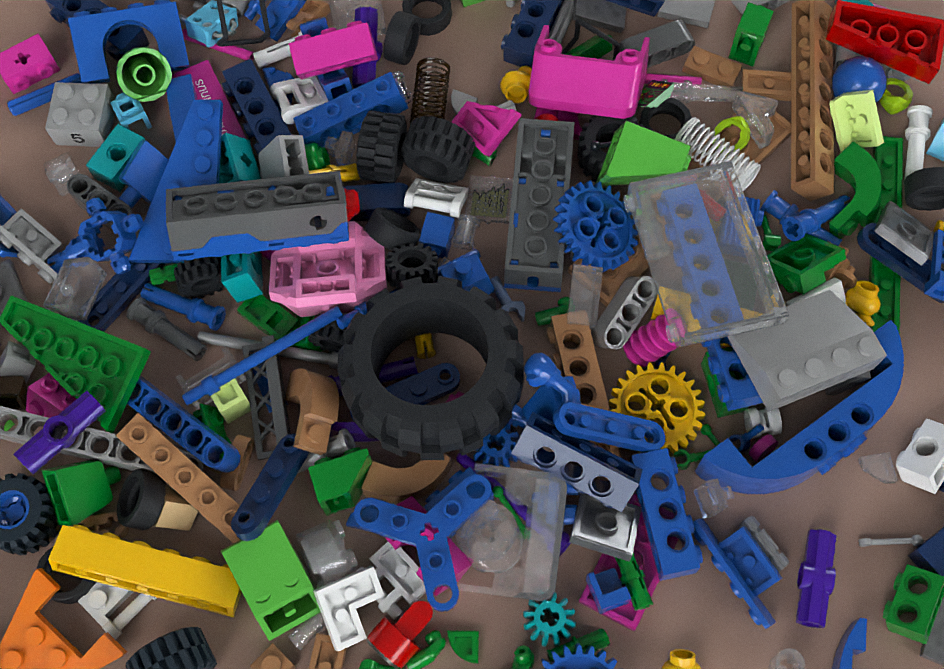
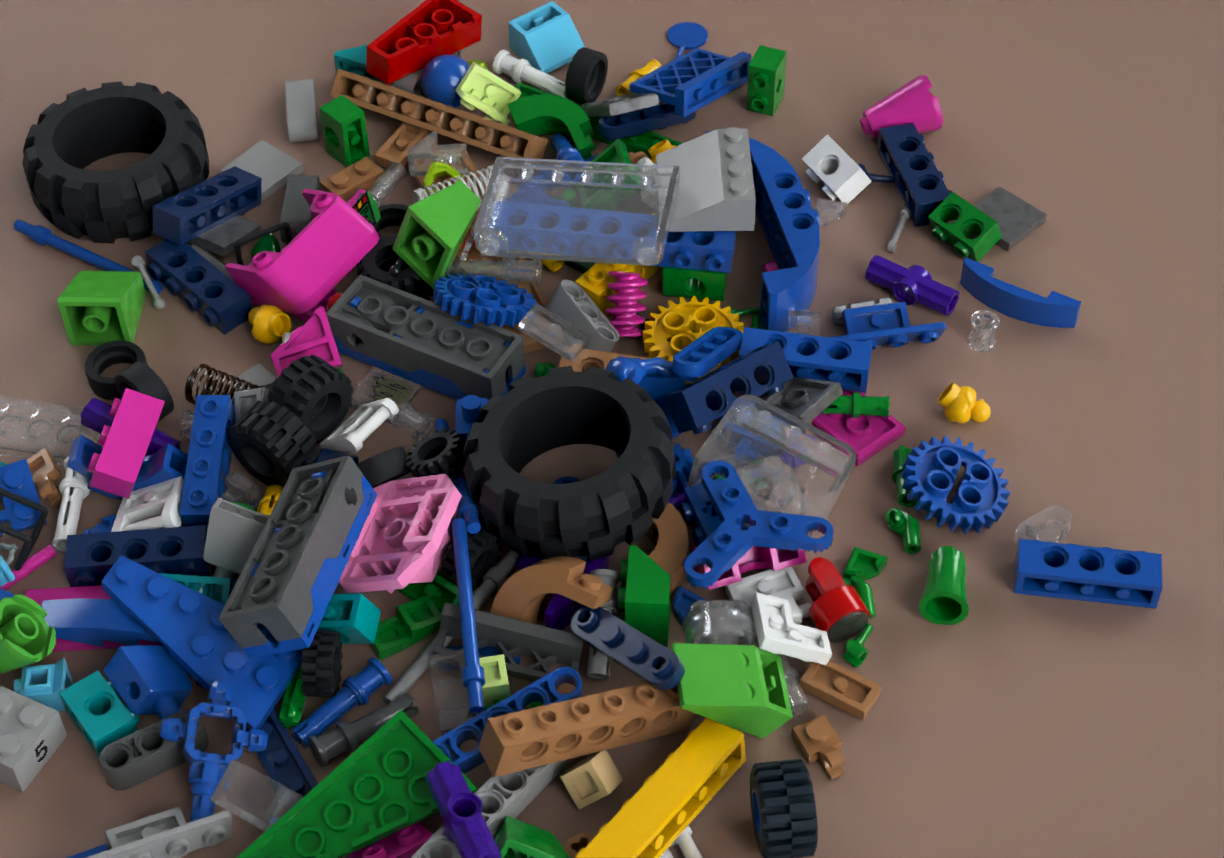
camera: 70 degrees left, 20 degrees down
(60, 171) = (76, 781): clear slope -> none
(141, 500) = (549, 812): black tyre -> none
(413, 109) = (247, 398): none -> light grey tile
(437, 233) = (396, 434): blue brick -> none
(543, 628) = (870, 485): teal gear -> none
(607, 590) = (862, 431): blue panel -> none
(746, 437) = (756, 277): blue hand -> none
(770, 420) = (746, 267): white wheel -> none

